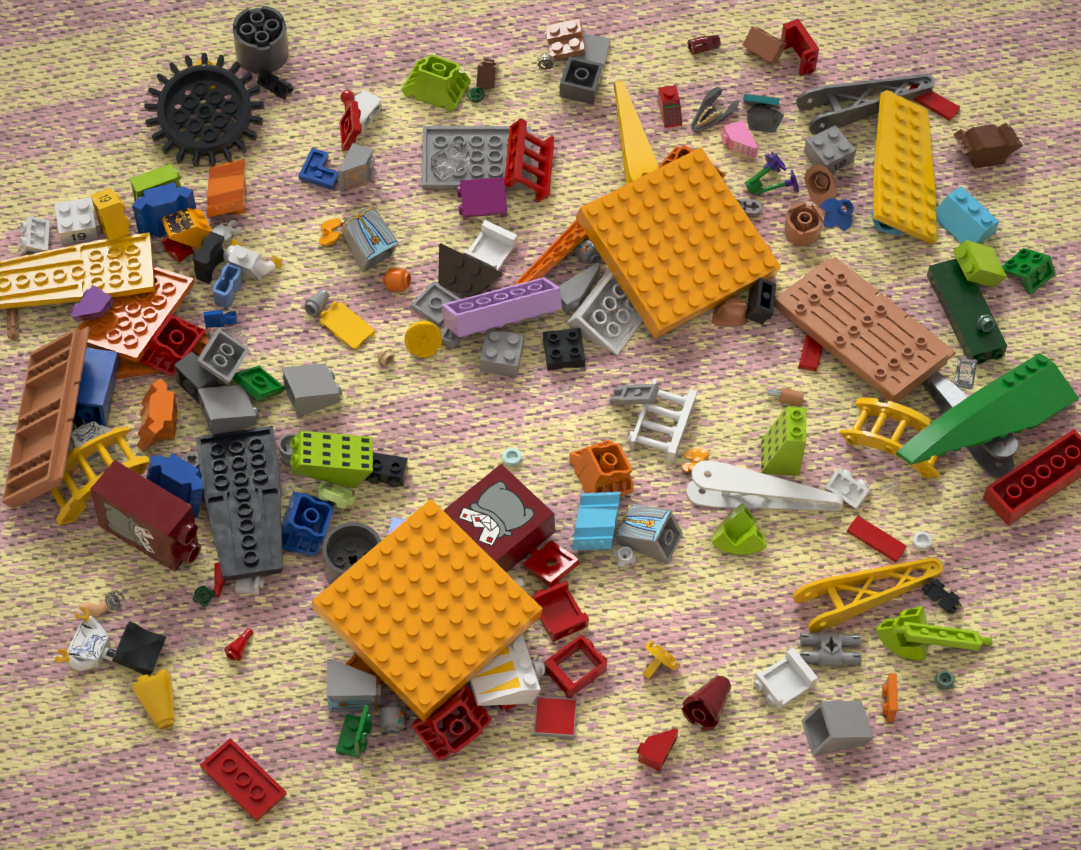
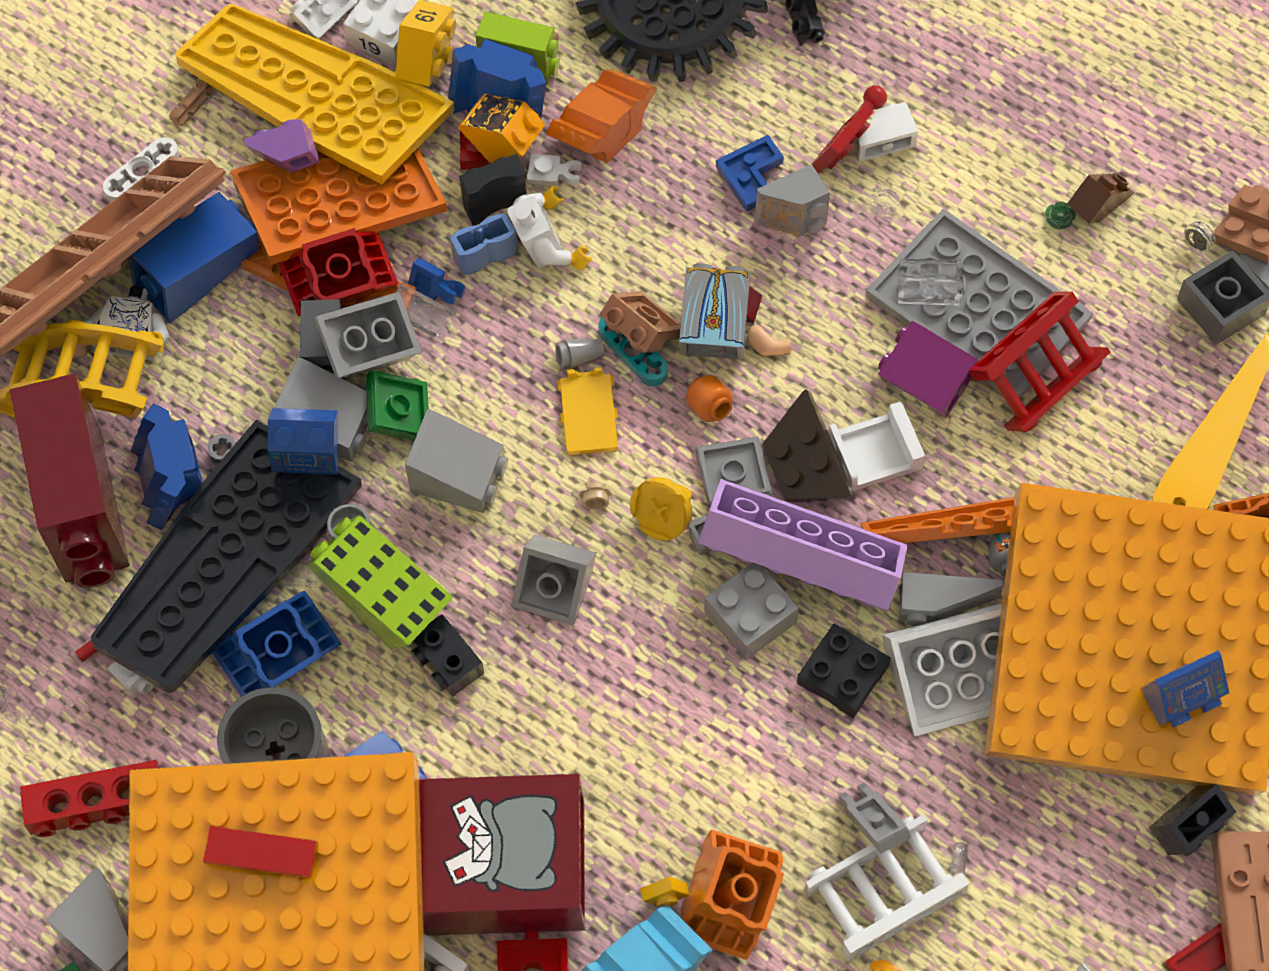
camera: 45 degrees right, 5 degrees up
(17, 363) = (118, 178): none -> white beam
(157, 415) = (233, 358): orange slope -> none
(200, 592) = (58, 638): clear green plate -> none
(236, 649) = (34, 750): red cone -> none
(237, 423) = (303, 441): none -> blue slope
(288, 634) = (41, 798): none -> red brick
(329, 236) = (675, 274): light orange piece -> none
(335, 267) = (640, 321): none -> nougat plate
(337, 494) = (334, 634): yellowish green plate -> none
(339, 278) = (654, 359): none -> teal beam
(392, 143) = (884, 203): none -> clear tile
(402, 239) = (765, 345): none -> light nougat arm
(402, 404) = (553, 579): none -> light grey slope
(405, 585) = (260, 852): none -> red tile
(436, 82) = (1020, 161): lime slope -> none
(511, 457) = (629, 771): light aqua tile -> none
(575, 490) = (665, 892): none -> yellow plate
(682, 387) = (958, 858): none -> clear tile
(720, 243) = (1187, 689): none -> blue slope
(730, 313) = (1134, 802): nougat piece -> none

